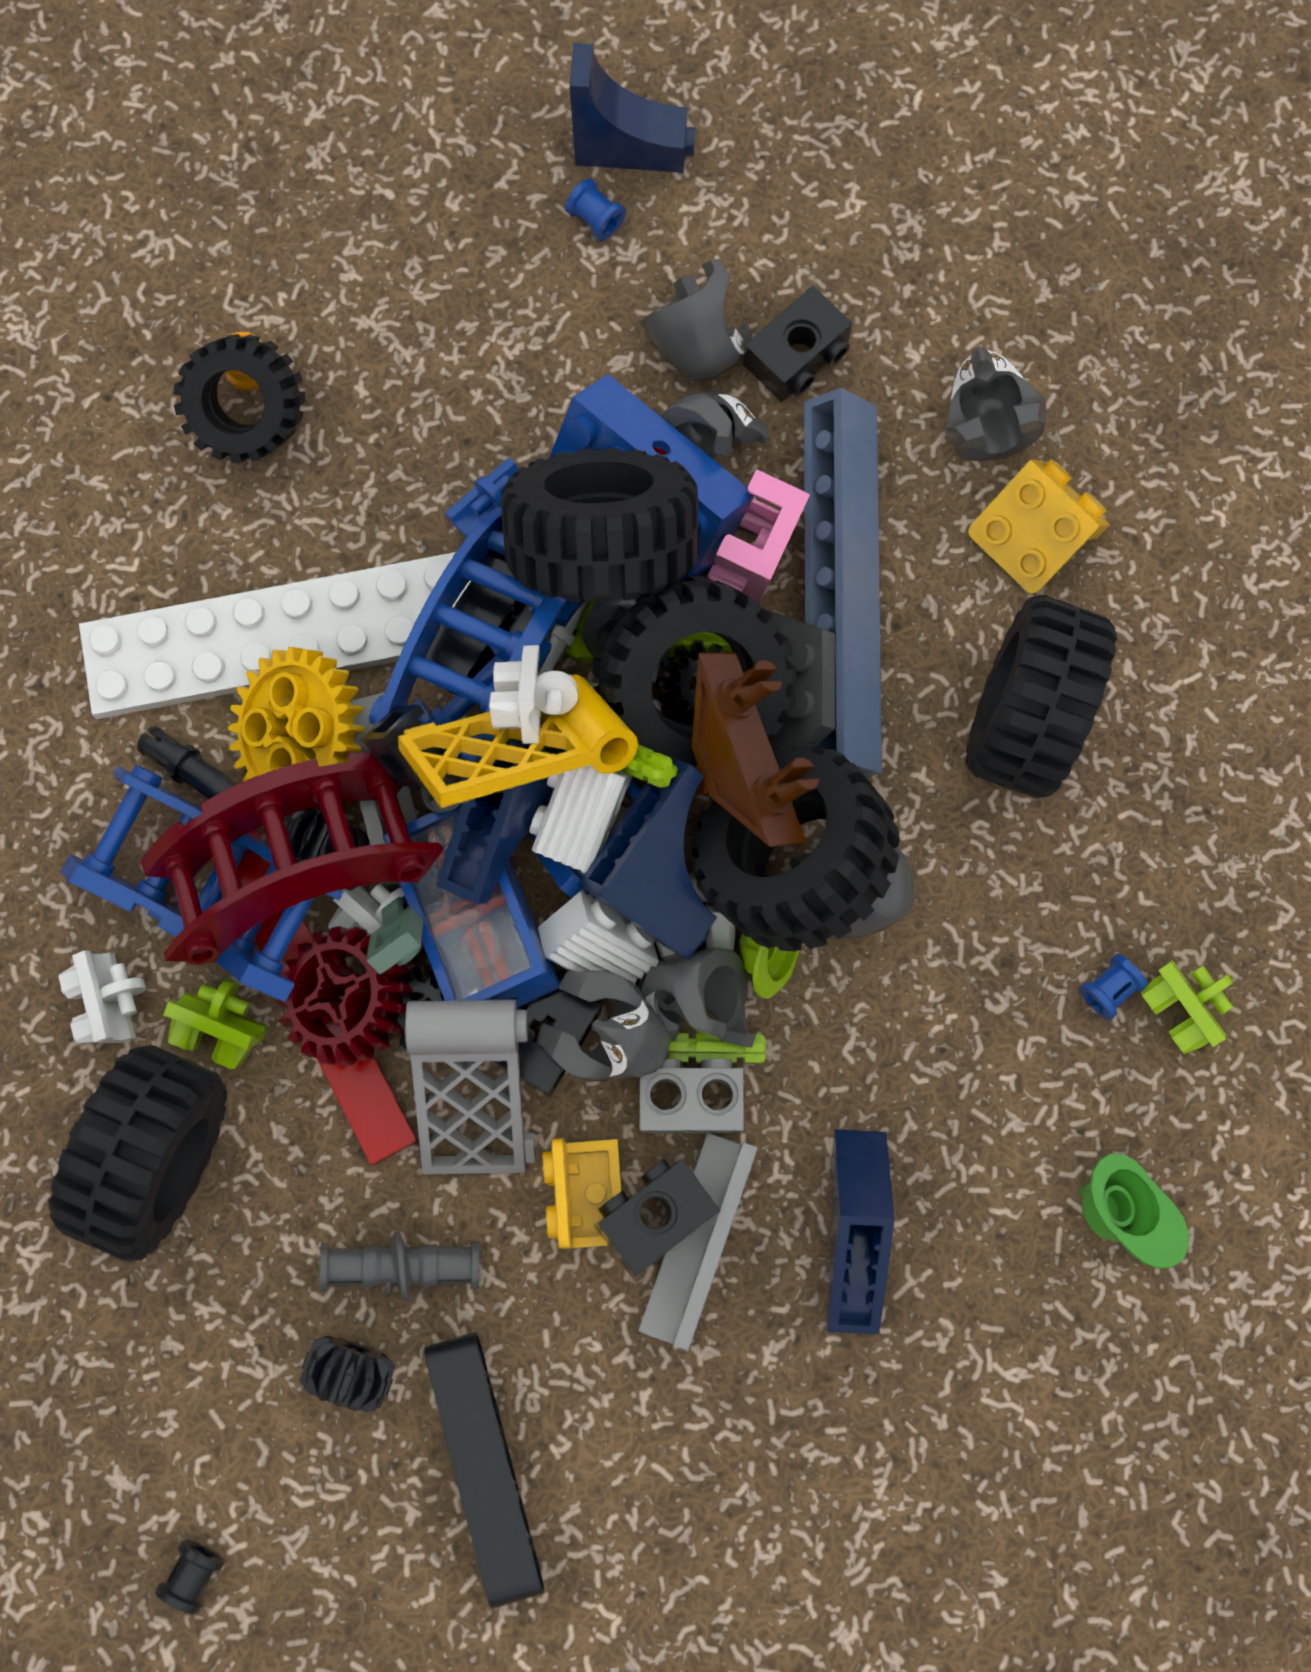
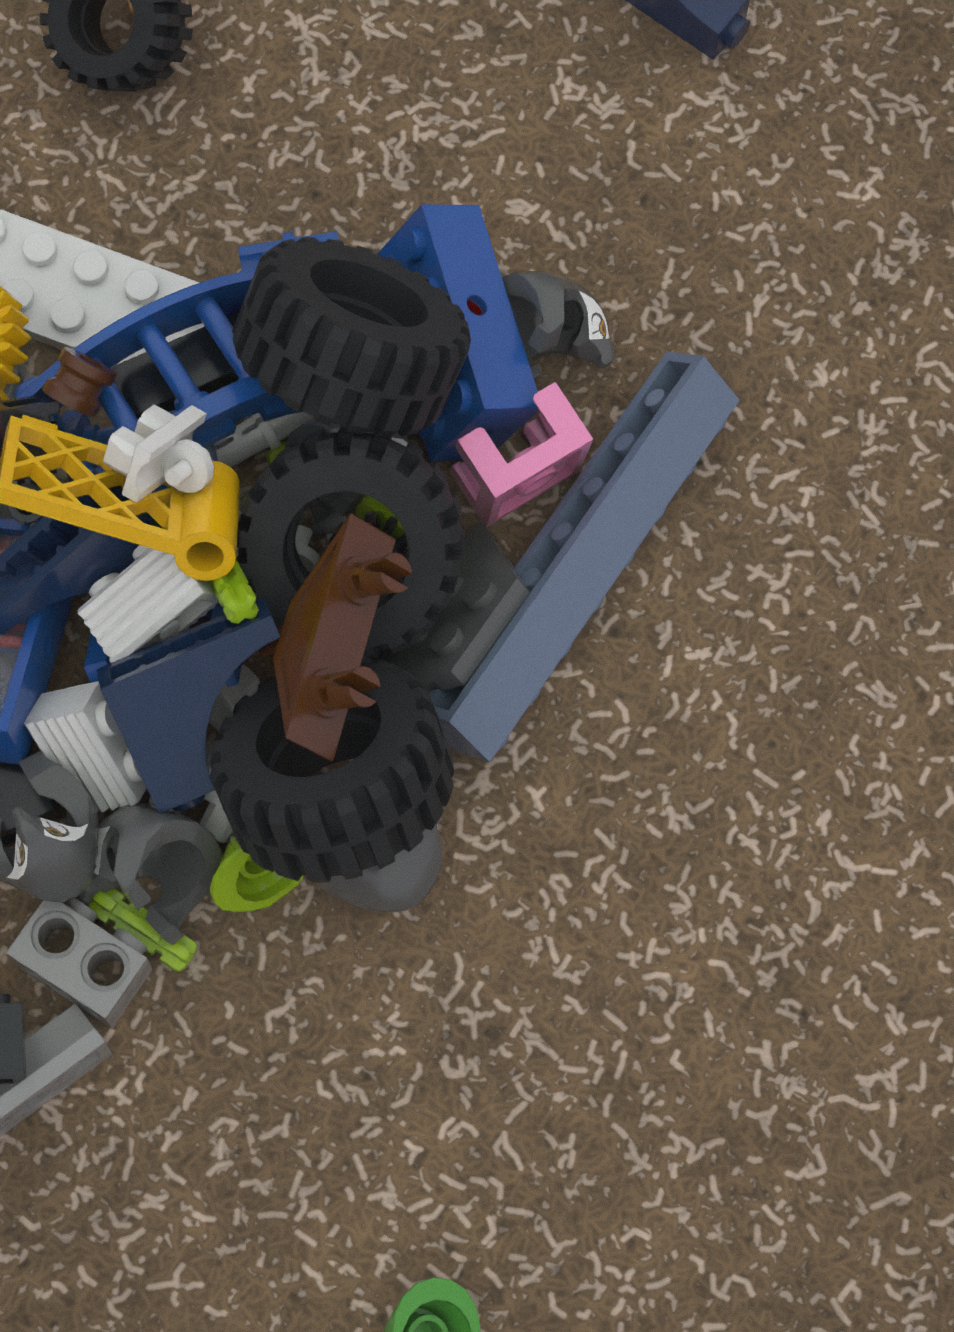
camera: 30 degrees right, 5 degrees down
(422, 680) = (79, 382): none -> reddish brown wheel
(595, 209) = (595, 43): blue bush -> none
(693, 327) = (599, 217): dark grey piece -> none
(806, 321) = (725, 272): black brick -> none
(859, 1231) = (147, 1189): dark blue arch -> none
(993, 409) = (854, 473): dark grey piece -> none
(1037, 524) = (827, 616): yellow bracket -> none
(1041, 696) = (684, 776): black tyre -> none
(1113, 987) = (578, 1122): blue bush -> none
(1201, 1025) = (650, 1182): lime hips -> none

